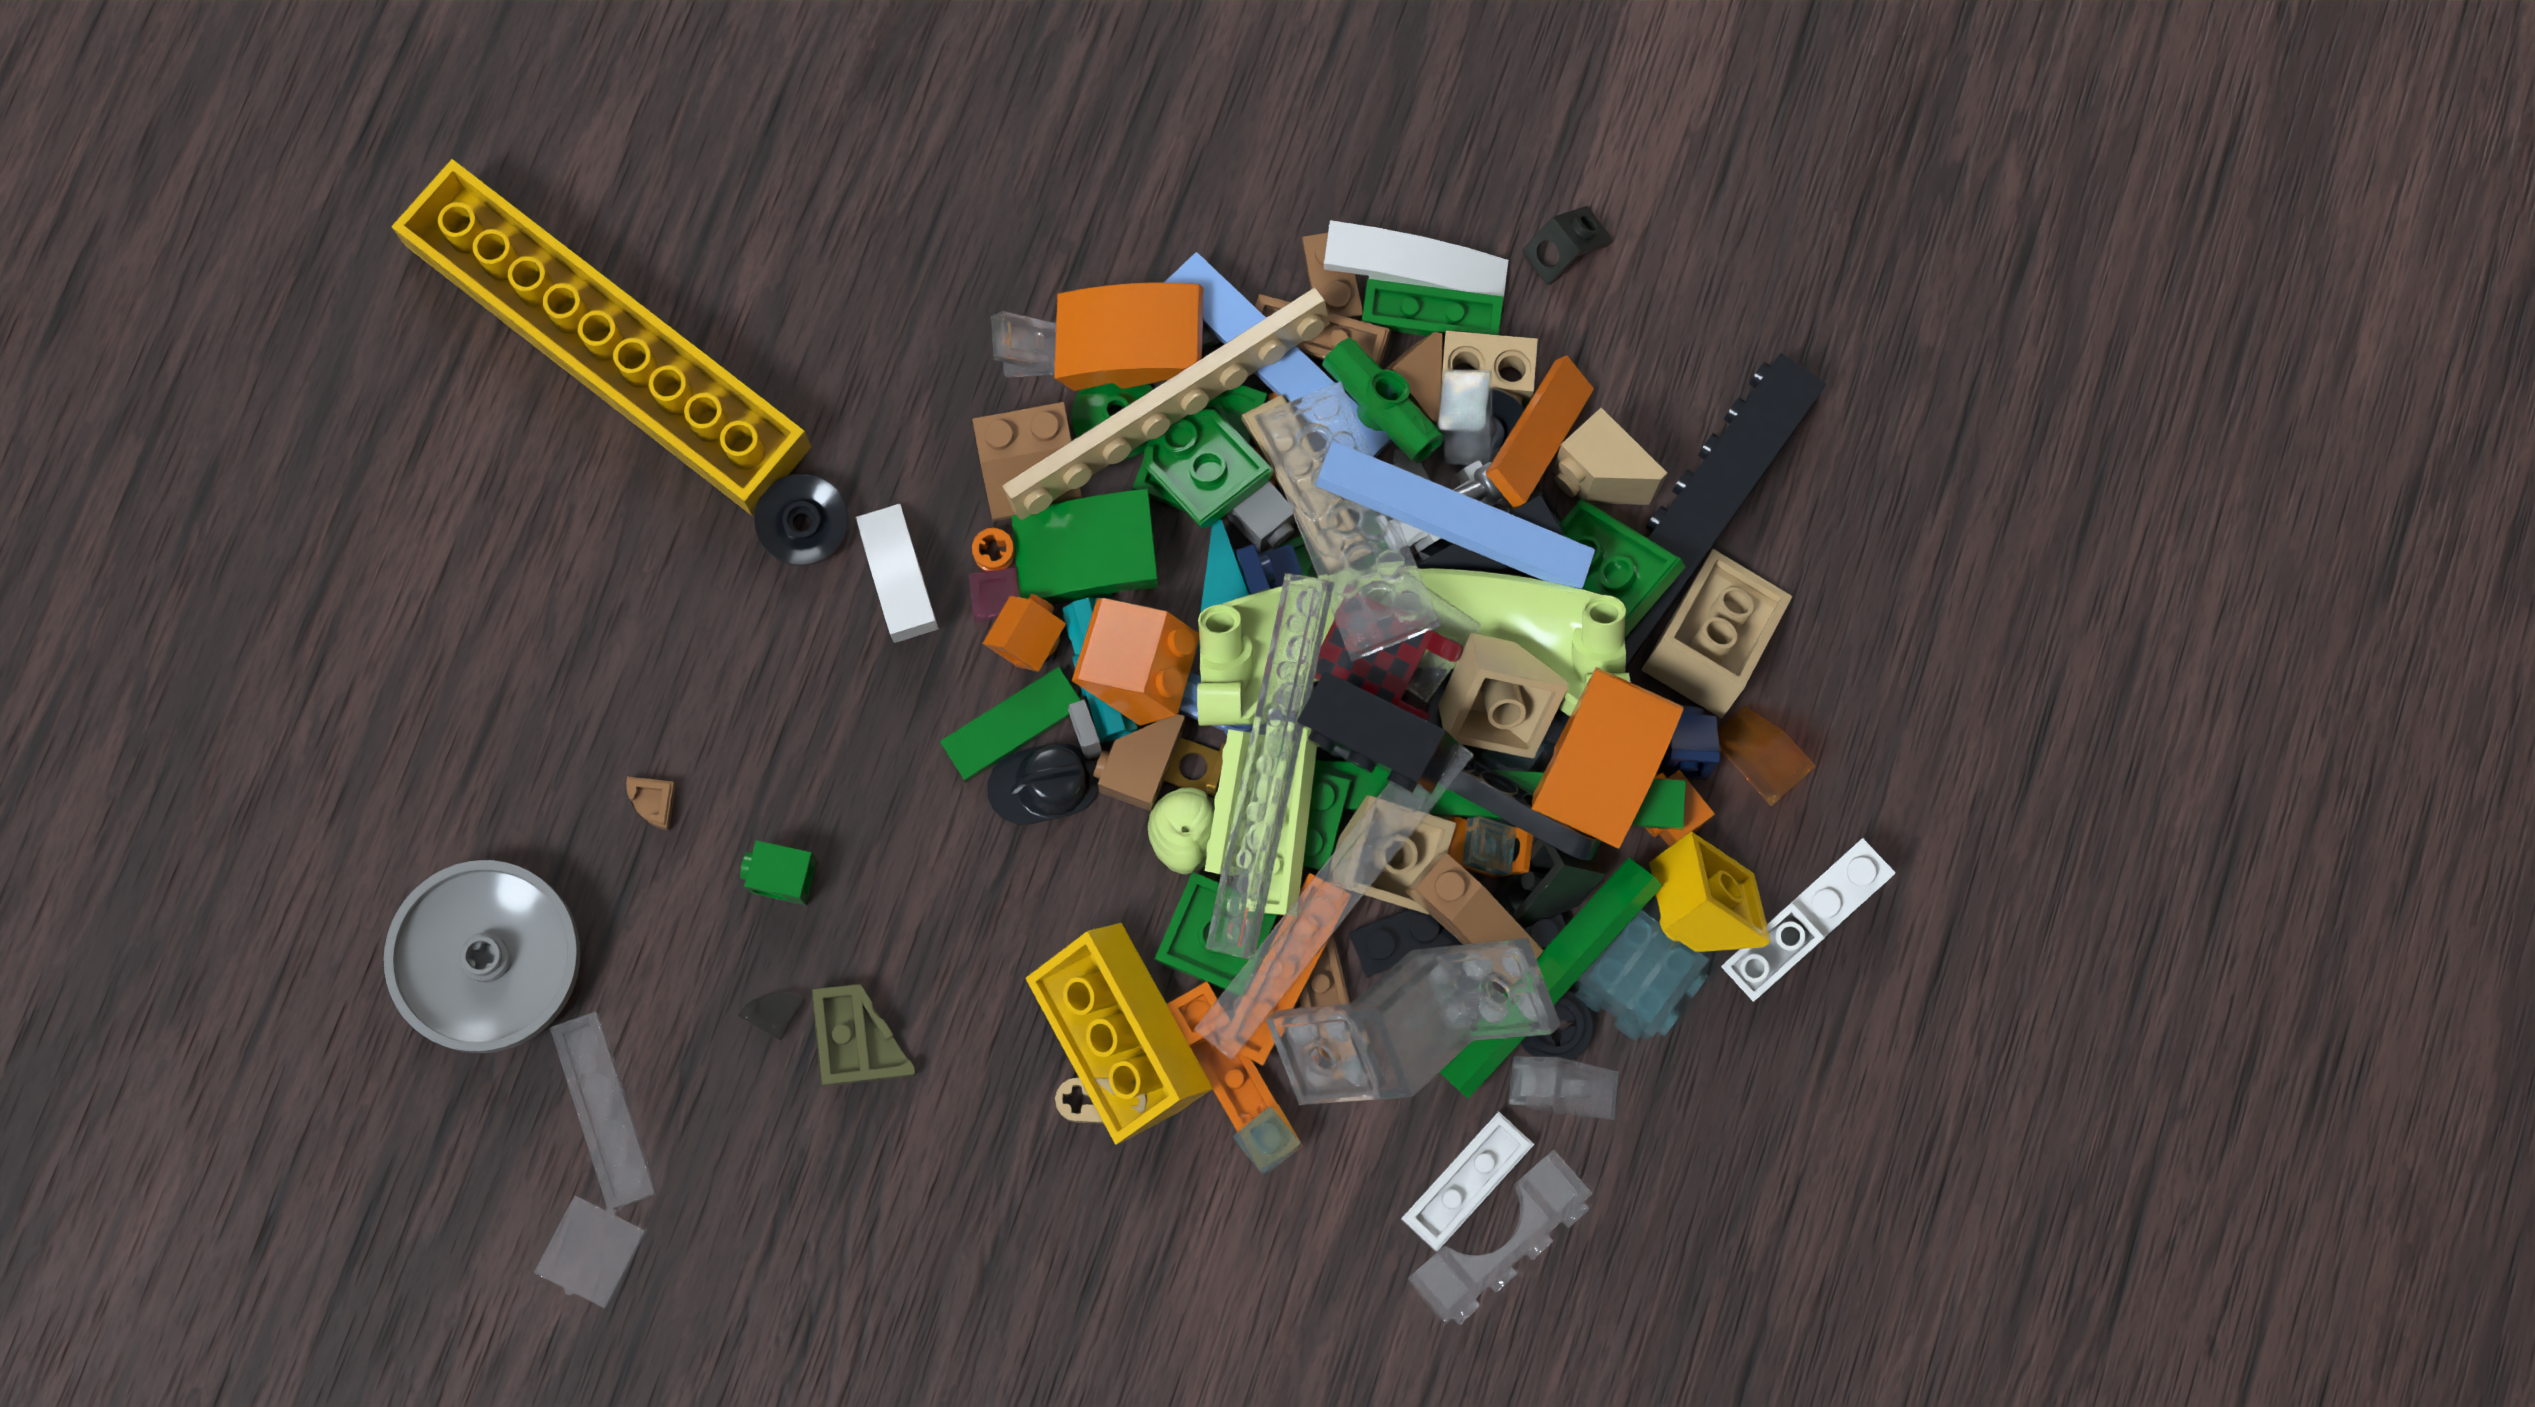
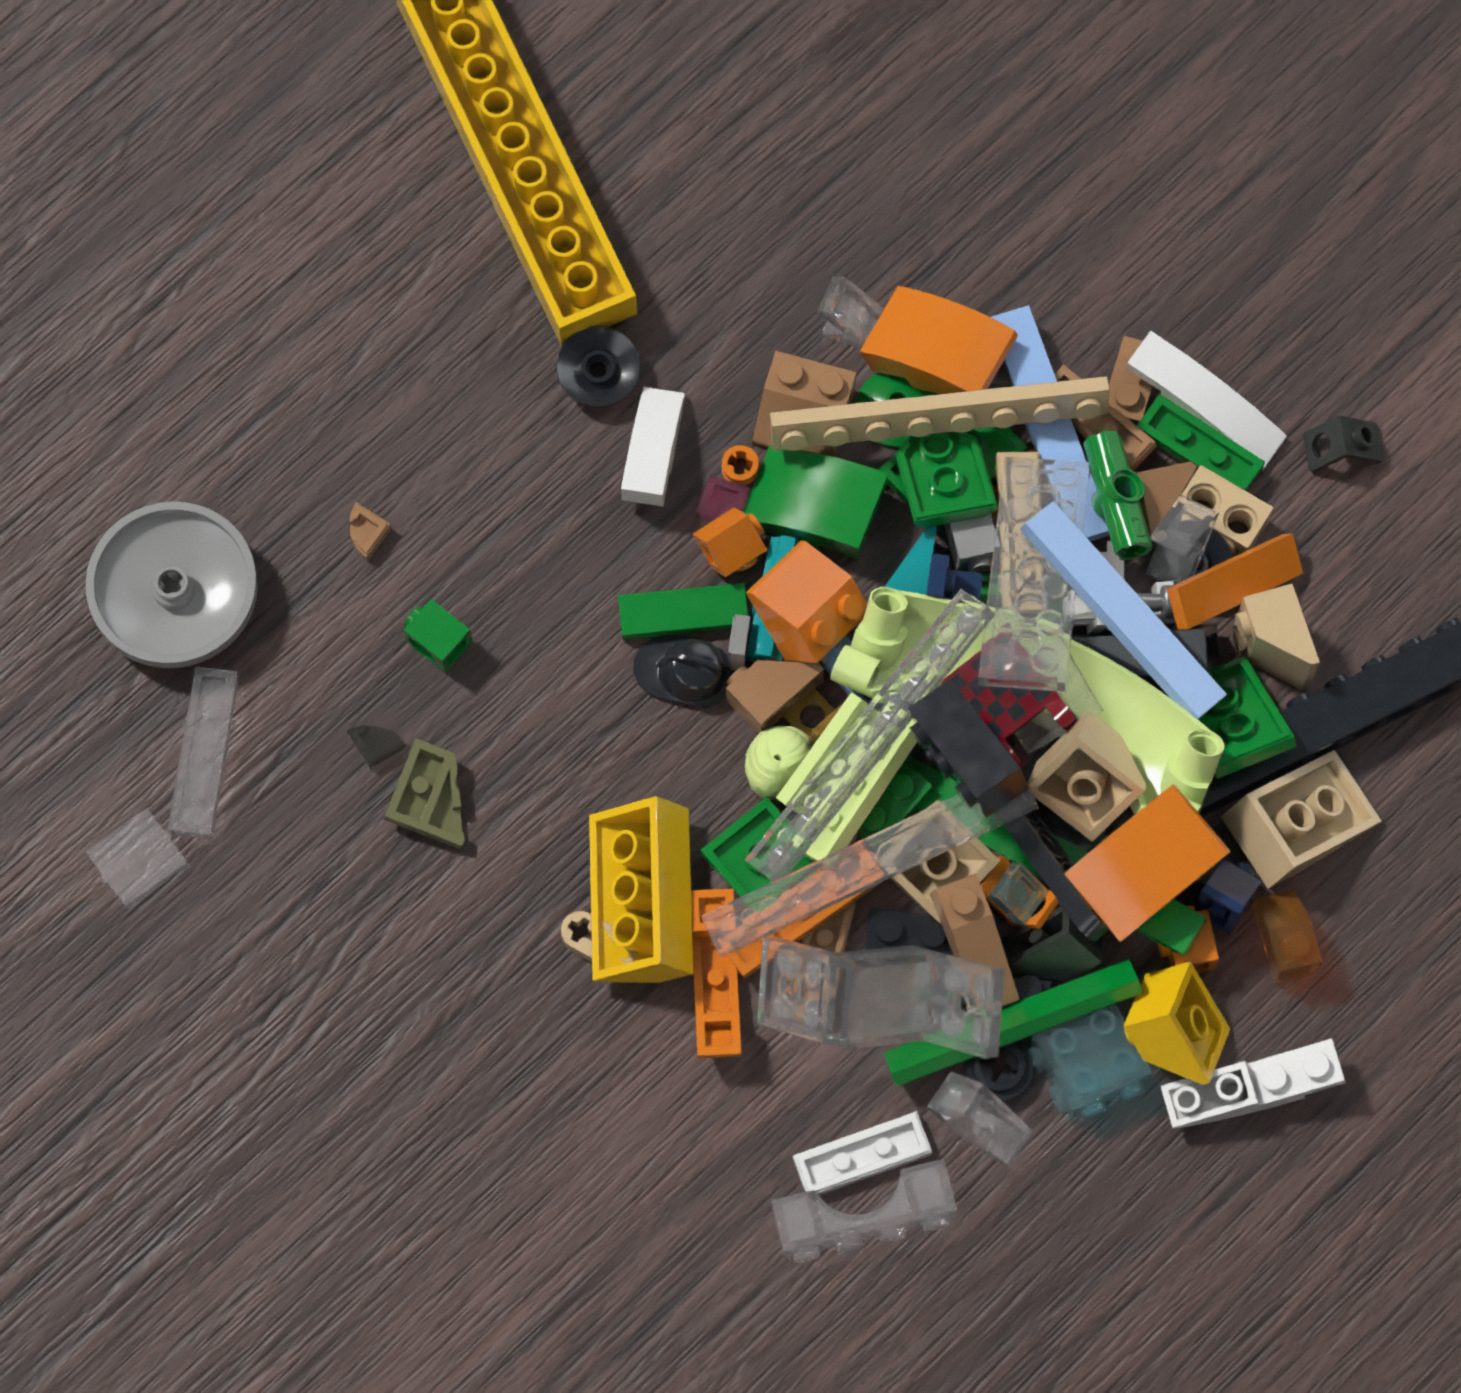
camera: 30 degrees right, 5 degrees down
(1267, 1141) = (714, 1034): clear light blue plate -> none

